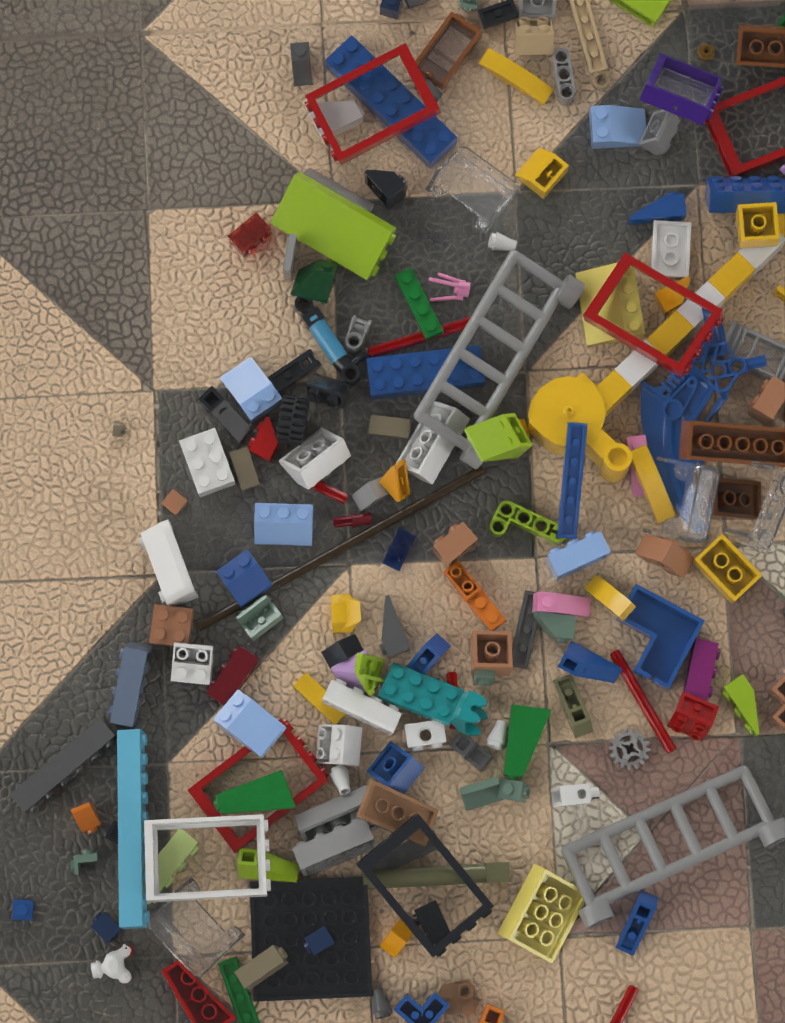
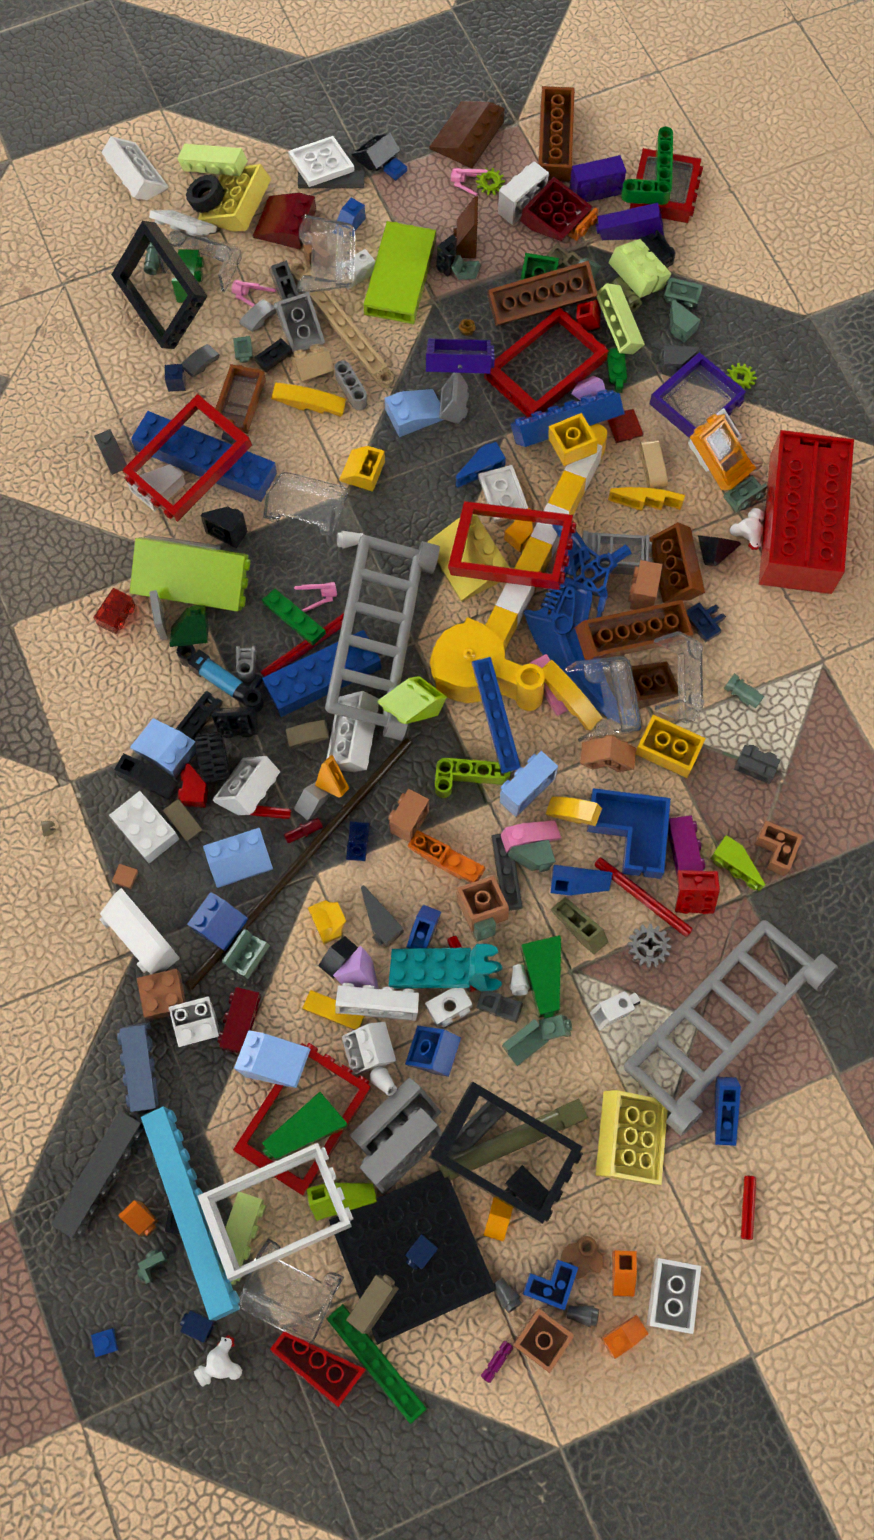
camera: 20 degrees left, 10 degrees down
(369, 671) = (371, 964): lime slope -> none
(391, 809) = (443, 1089): medium nougat plate -> none

